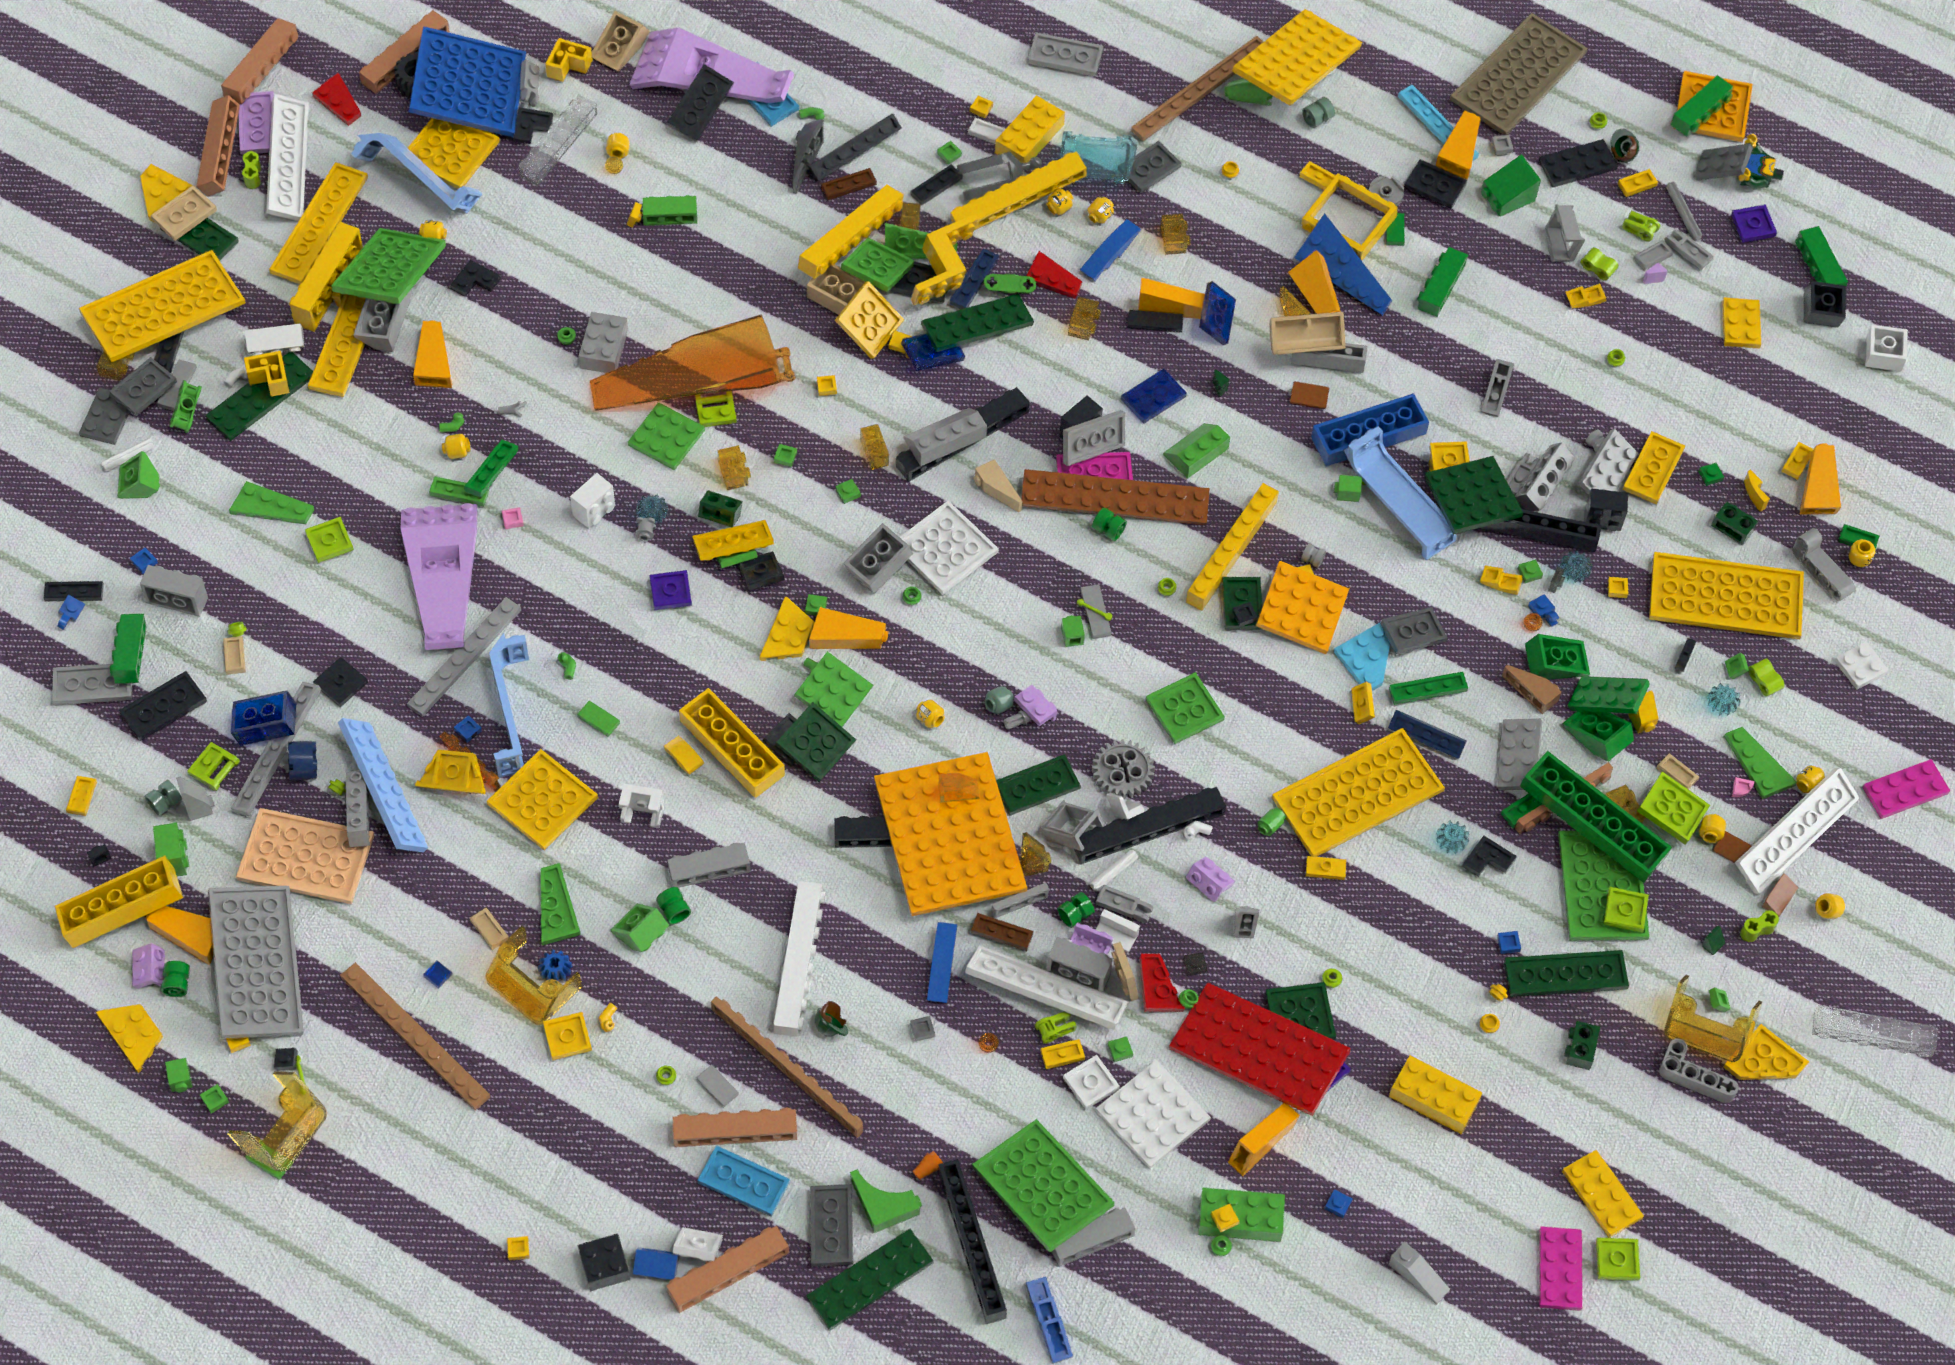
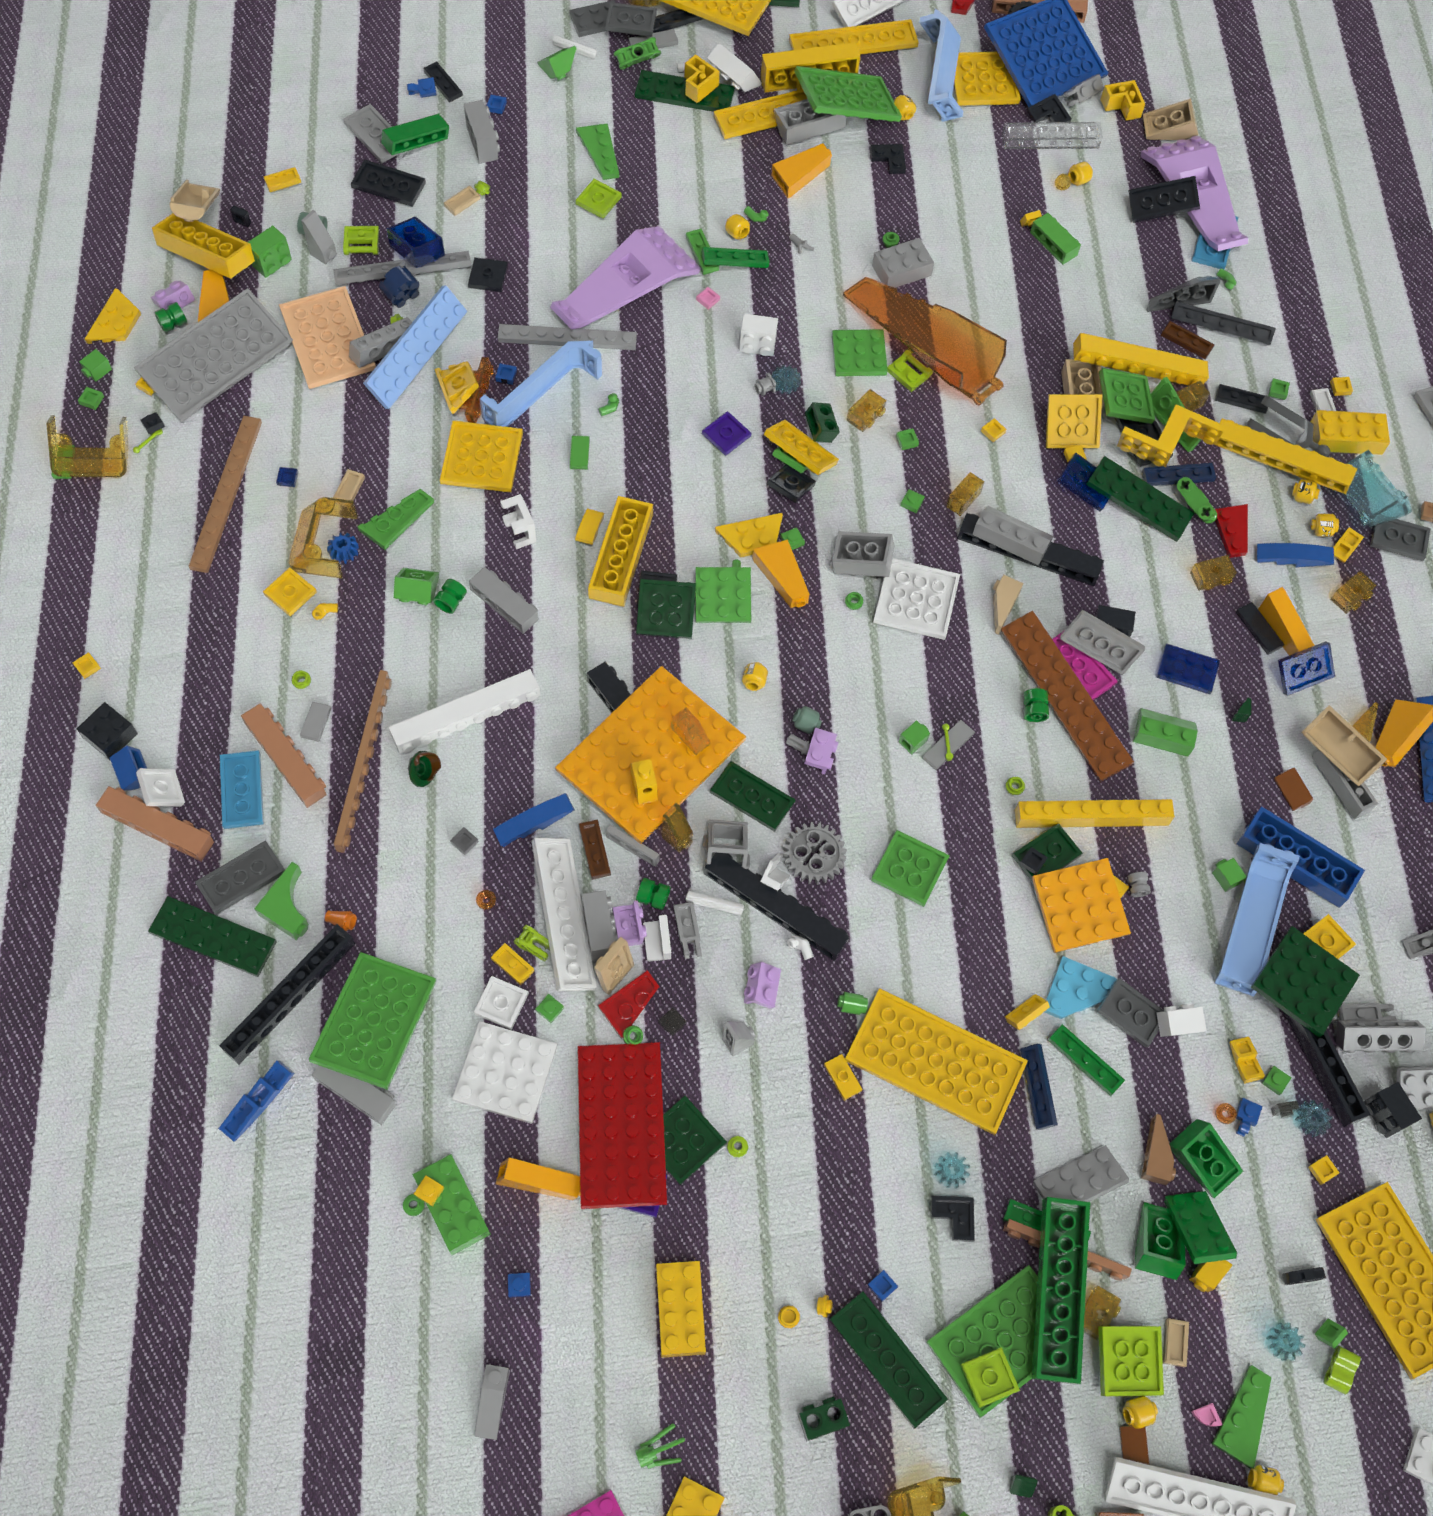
camera: 55 degrees right, 5 degrees up
(61, 880) = (192, 200): none -> tan container
(981, 848) = (643, 778): none -> yellow torso
(1127, 208) = (1347, 544): none -> yellow slope
(1444, 601) = (1181, 1021): none -> white brick
(1530, 1185) = (647, 1455): none -> bright green plant

